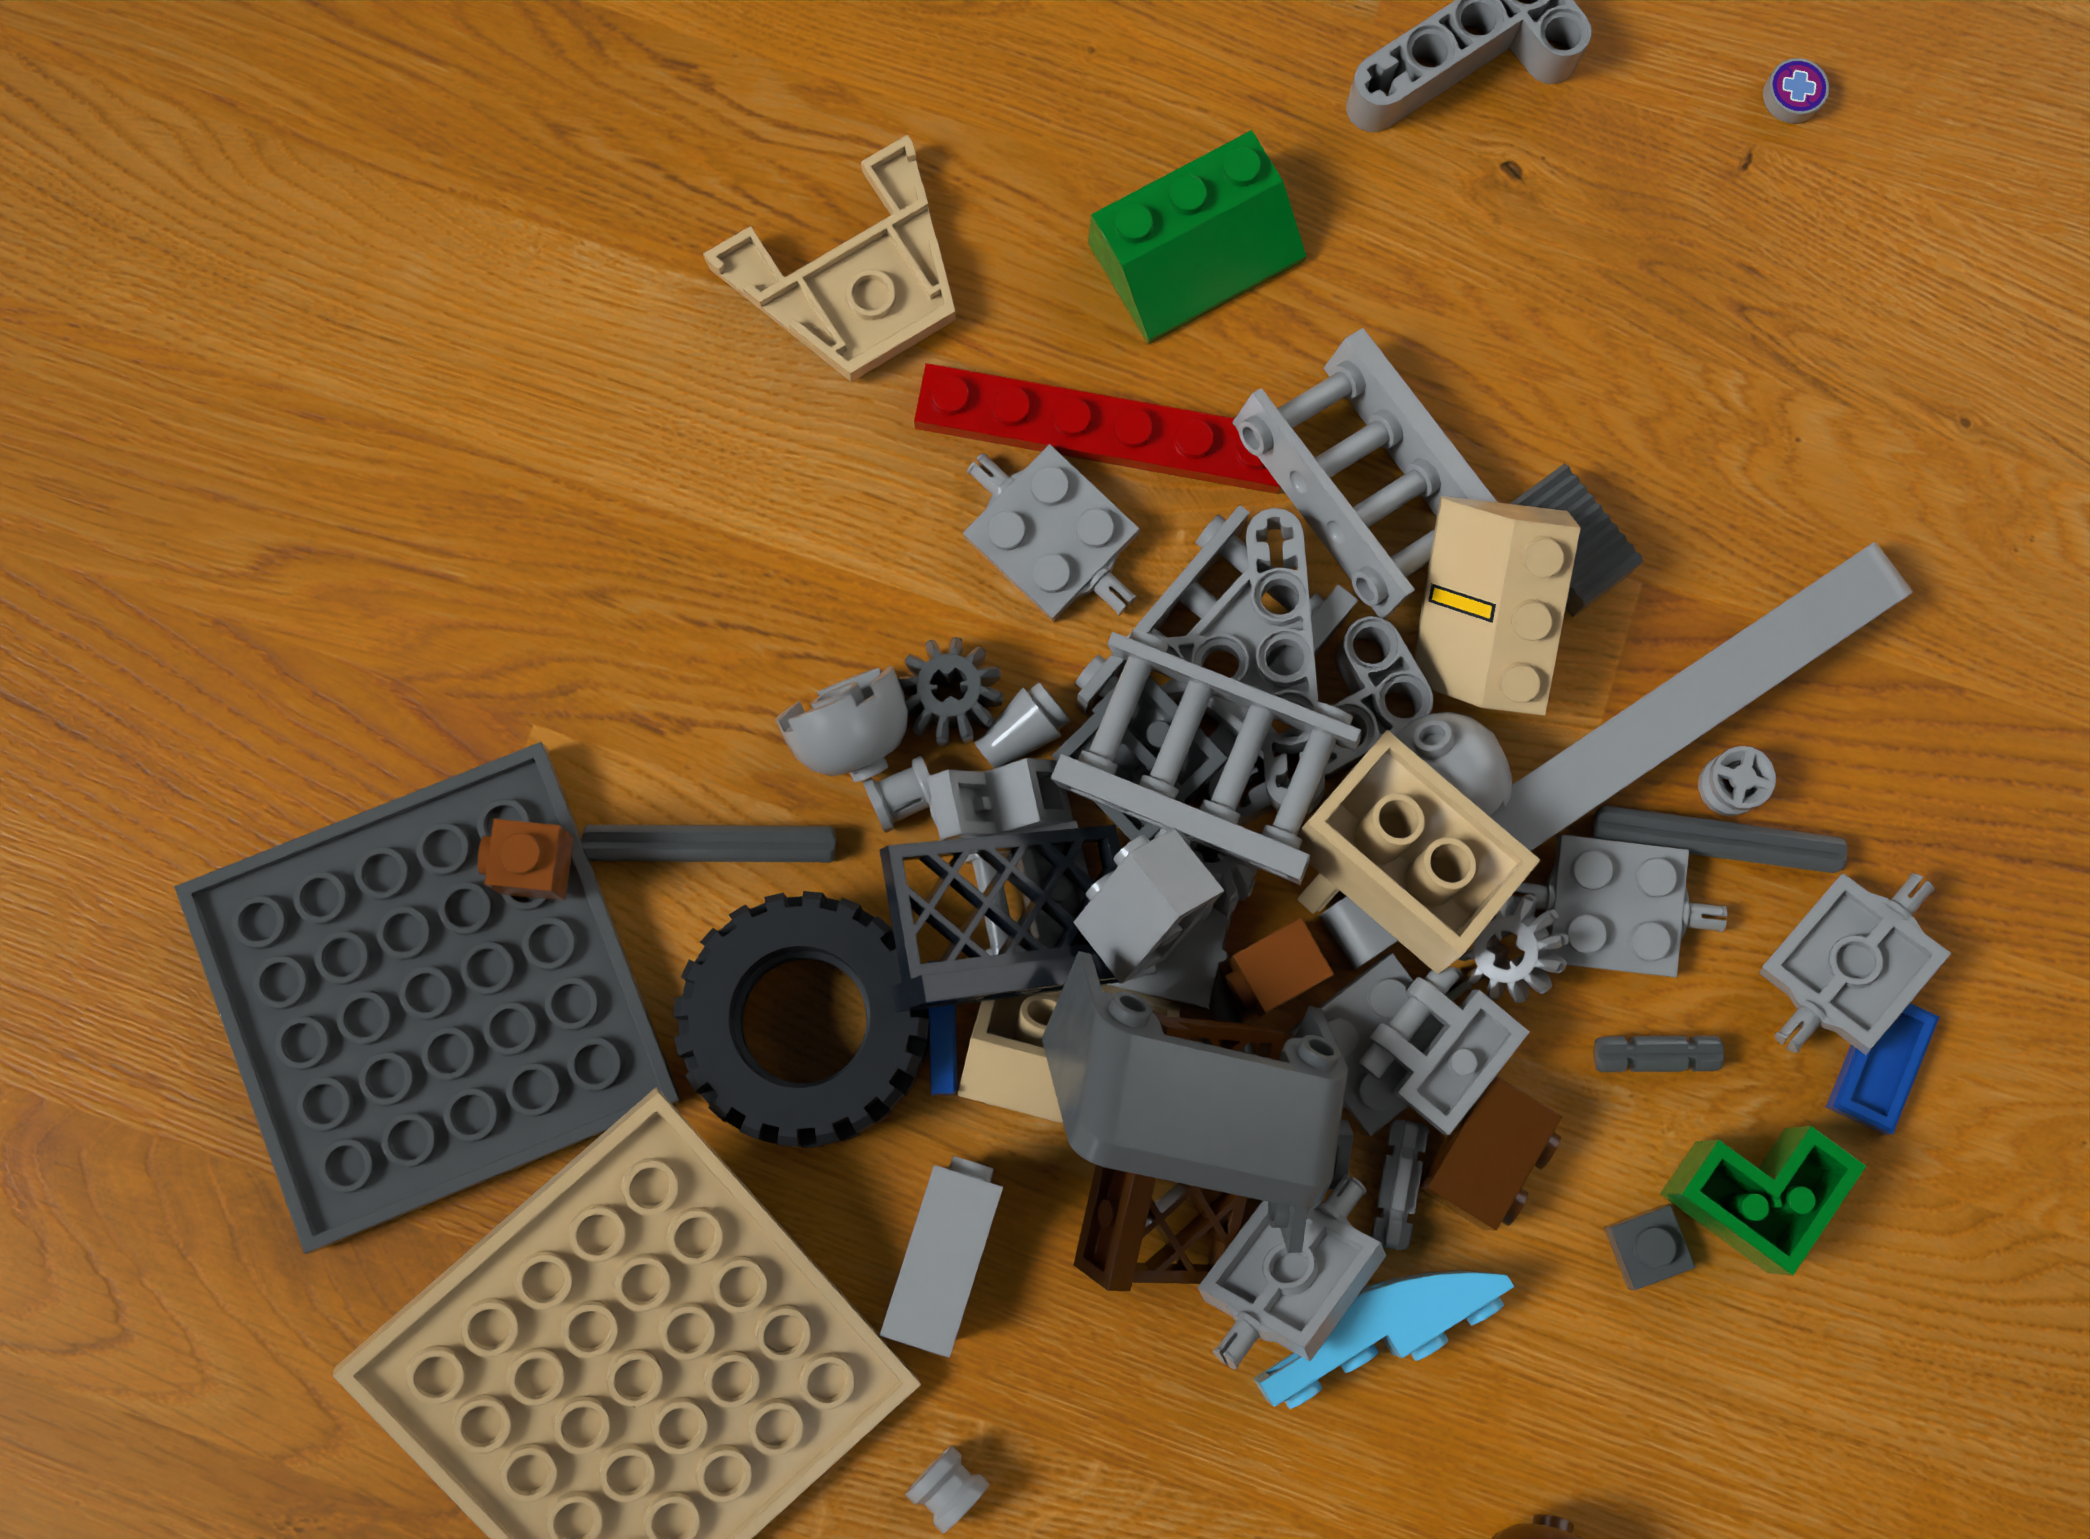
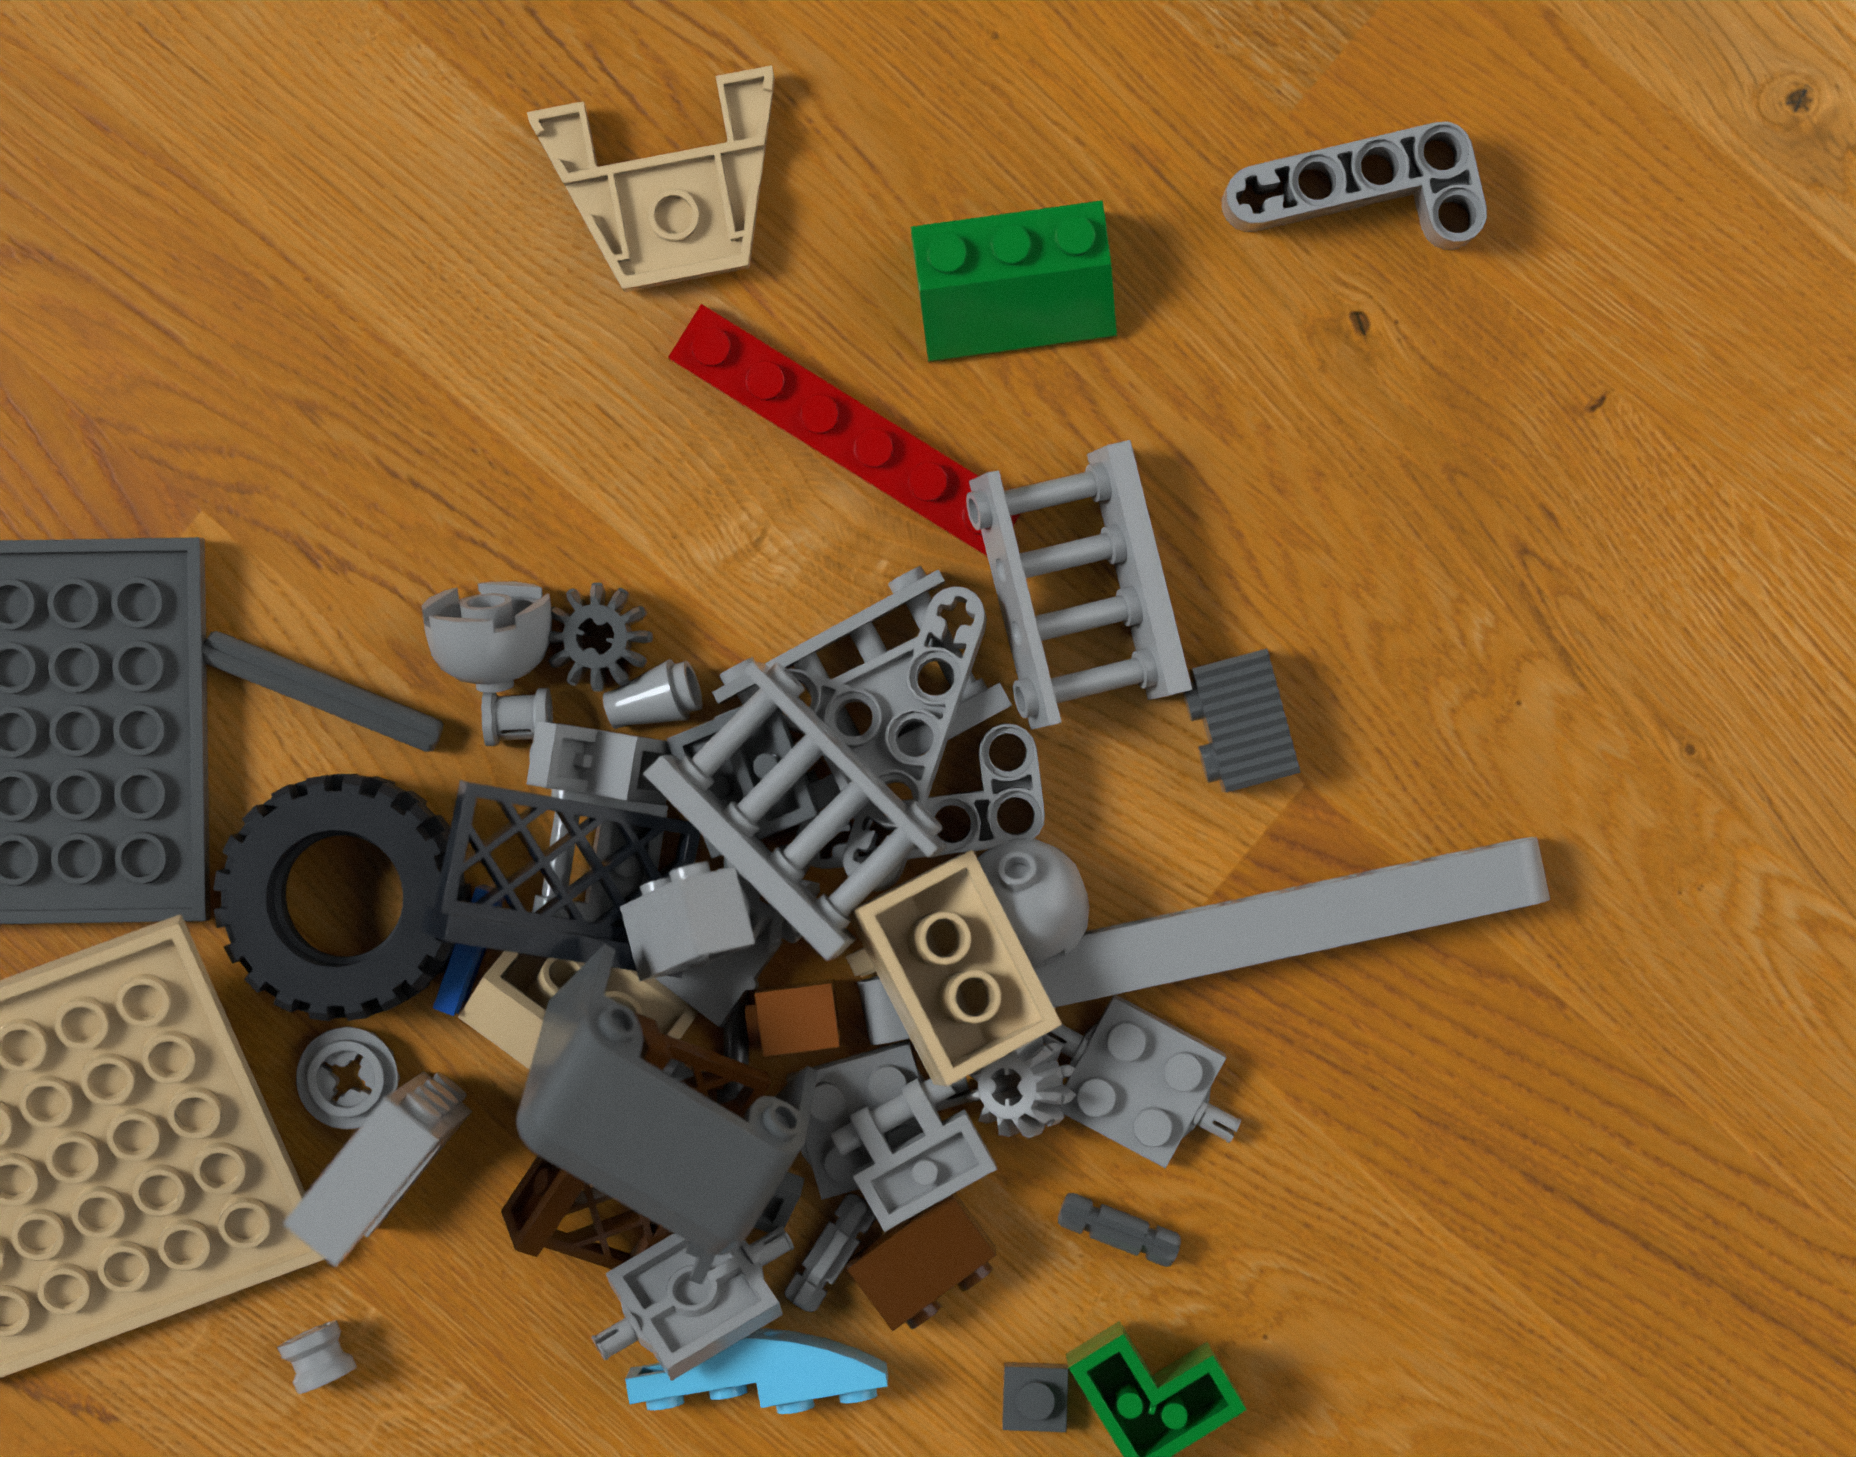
camera: 30 degrees right, 10 degrees up
(526, 859) = (143, 652): dark orange brick -> none
(846, 1220) = (319, 1085): none -> light grey gear
(1051, 533) = (756, 518): light grey plate -> none
(1495, 602) = (1137, 759): tan slope -> none
(1722, 839) = (1264, 1057): dark grey axle -> none
(1749, 775) = (1311, 1019): light grey wheel -> none
(1795, 90) = (1675, 352): tile -> none
(1854, 963) = (1333, 1221): light grey plate -> none
(1878, 1084) = (1324, 1318): blue tile -> none

